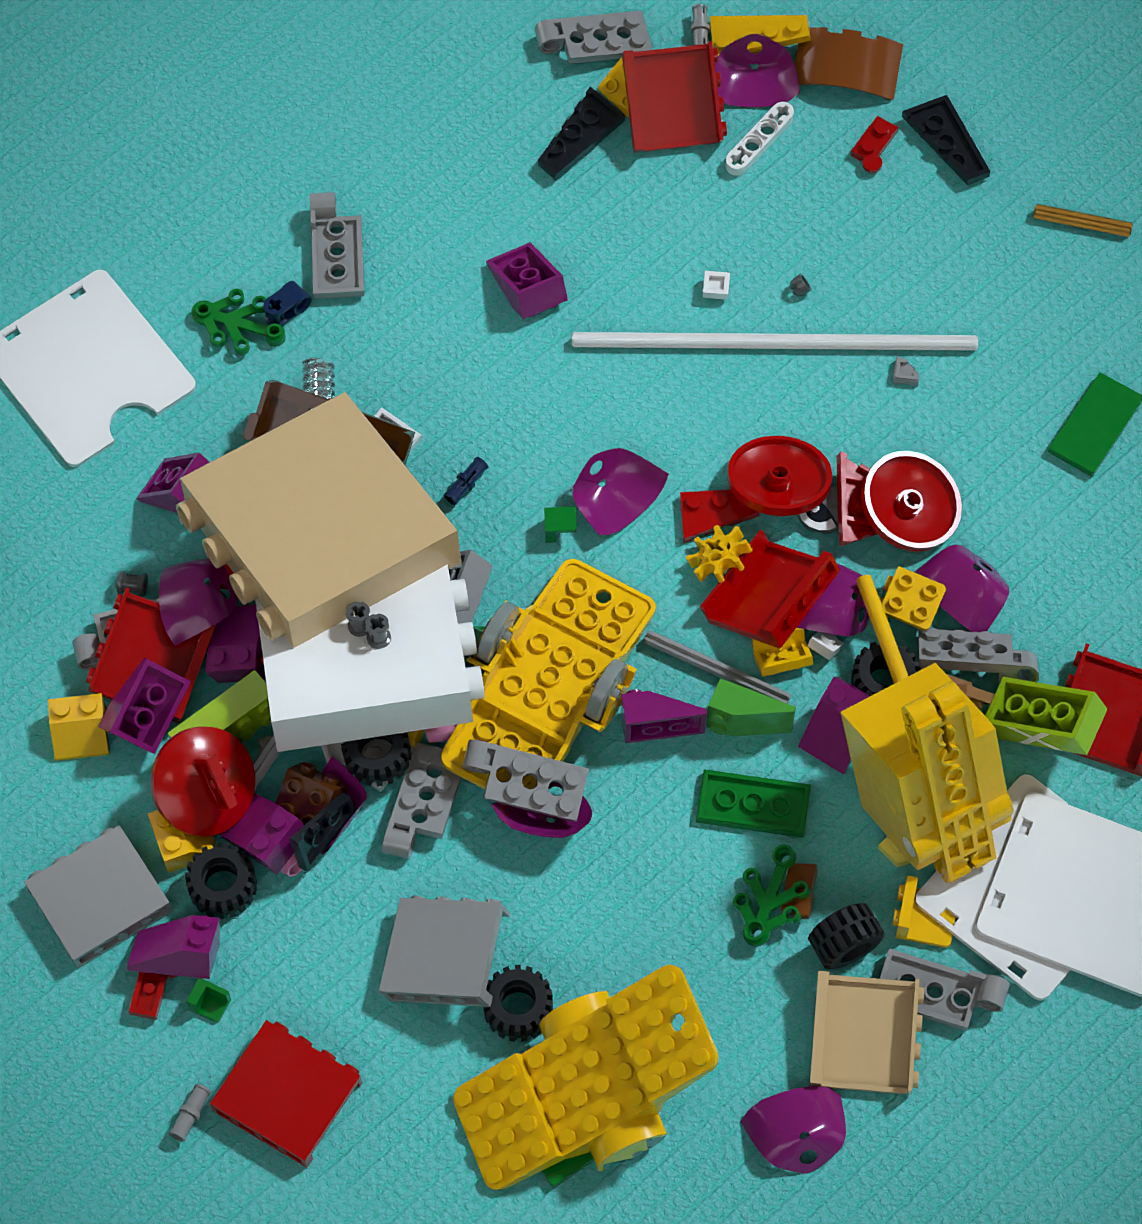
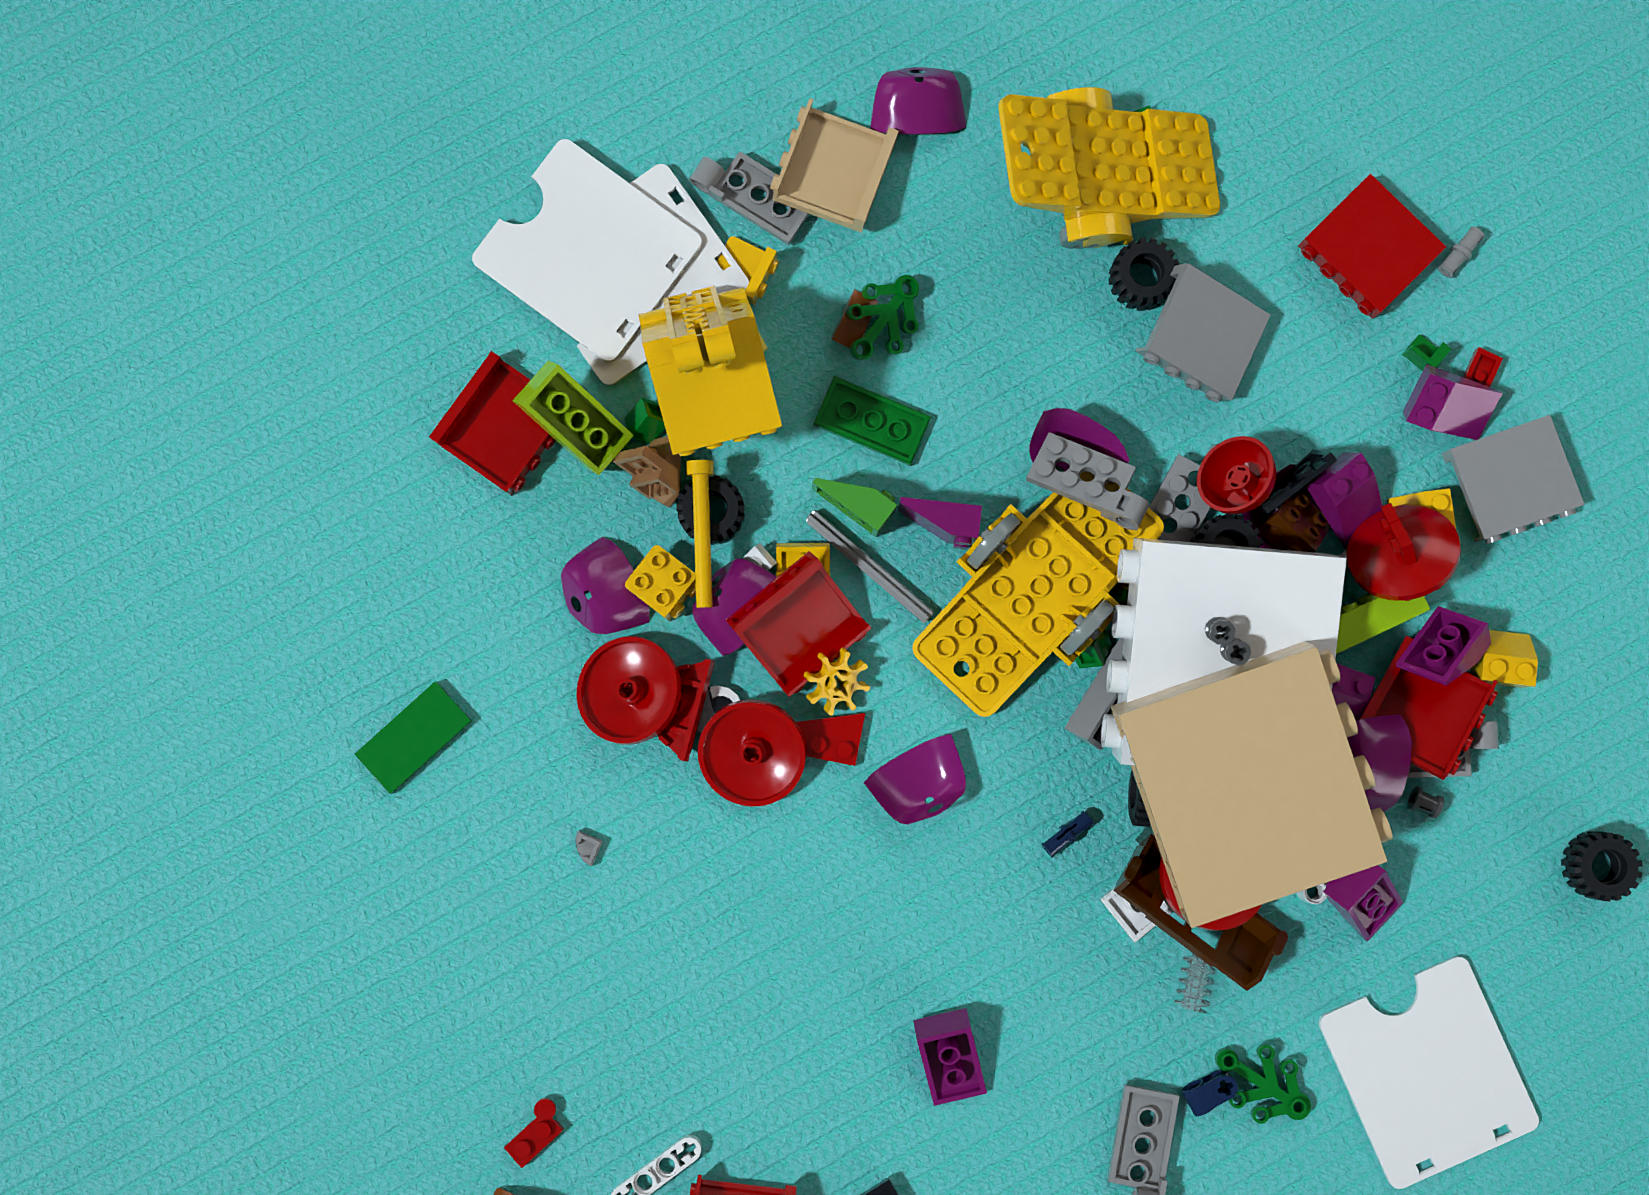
camera: 170 degrees left, 20 degrees up
(218, 860) = (1416, 458): black tyre -> none
(383, 806) = (1237, 475): none -> red piece
(559, 521) = (985, 759): green panel -> none
(716, 285) = (753, 999): white plate -> none
(774, 341) = (711, 917): white axle -> none
(801, 285) = (664, 976): dark grey hinge -> none
(825, 732) = (767, 469): magenta slope -> none
(846, 936) = (827, 253): black tyre -> none
(947, 135) = (455, 1126): black wing -> none
(990, 653) = (582, 487): light grey hinge -> none
(1083, 220) = (345, 980): pearl gold axle -> none

